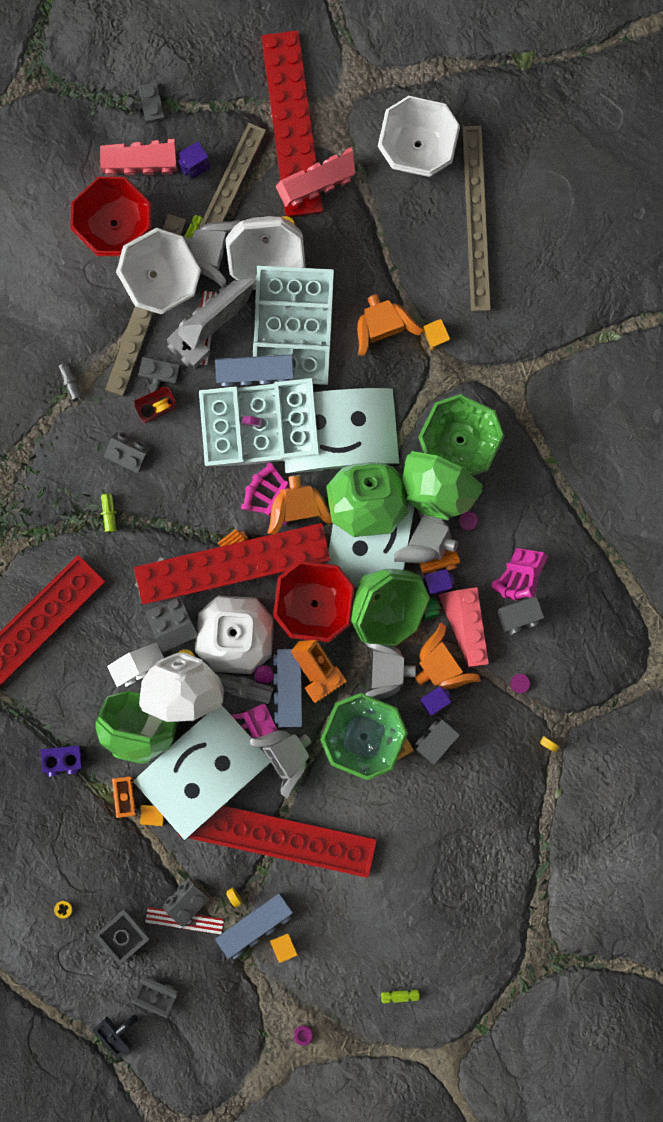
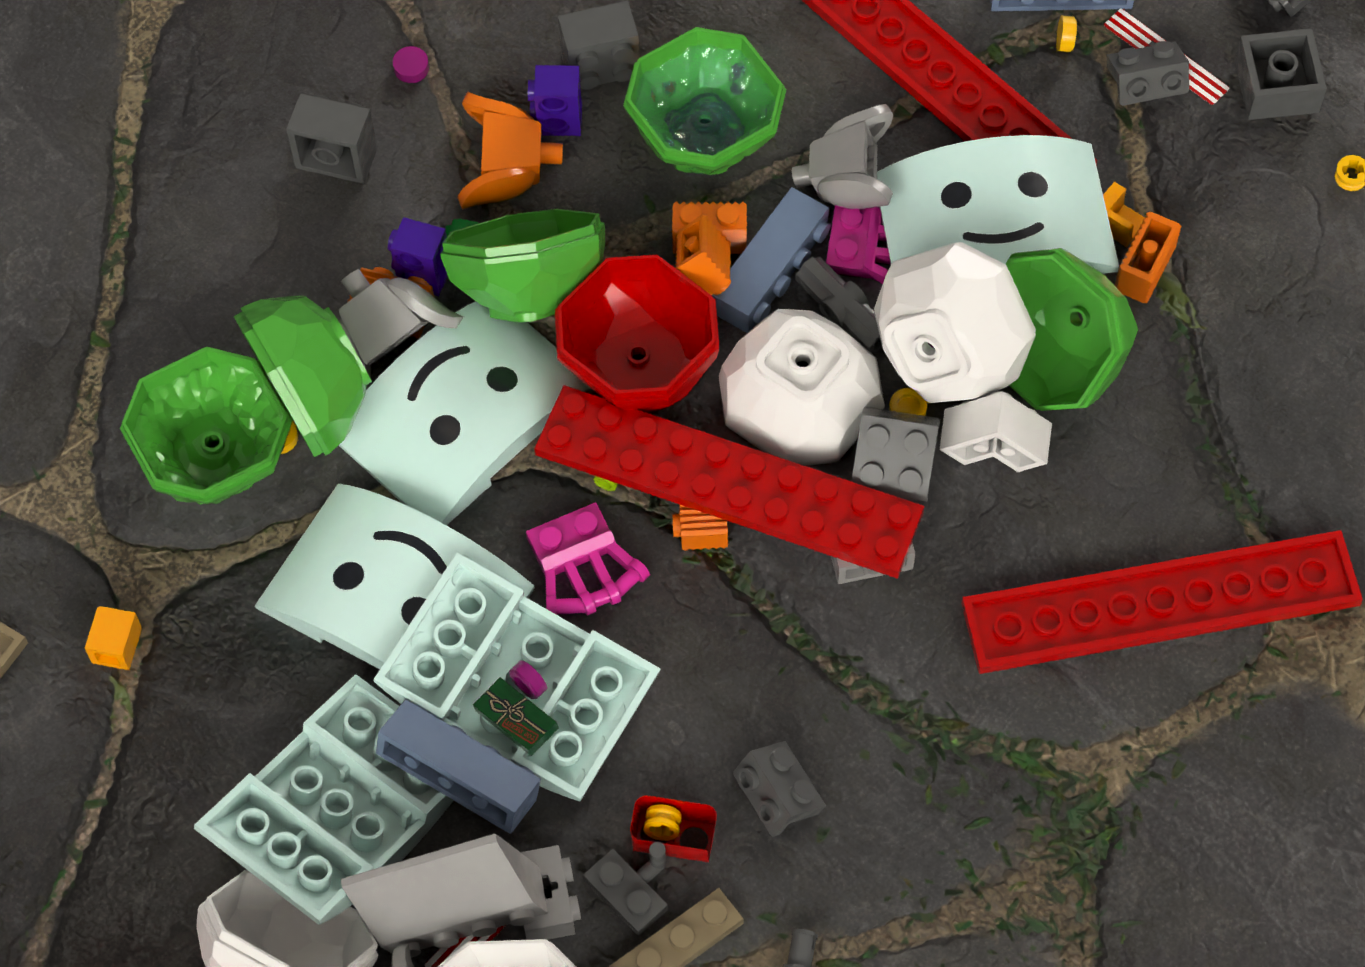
camera: 145 degrees left, 20 degrees down
(61, 755) = (1212, 383): dark purple brick -> none
(108, 513) = (880, 707): lime axle -> none
(246, 403) = (515, 716): none -> dark green tile
(264, 674) = (795, 300): magenta tile -> none
(296, 504) = (555, 507): orange torso -> none
(367, 509) = (457, 443): bright green rock -> none
(383, 321) = (184, 715): orange torso -> none
(388, 671) = (605, 182): light grey torso -> none
(465, 618) = (424, 173): coral wedge -> none
(524, 563) = (262, 202): dark pink plate -> none

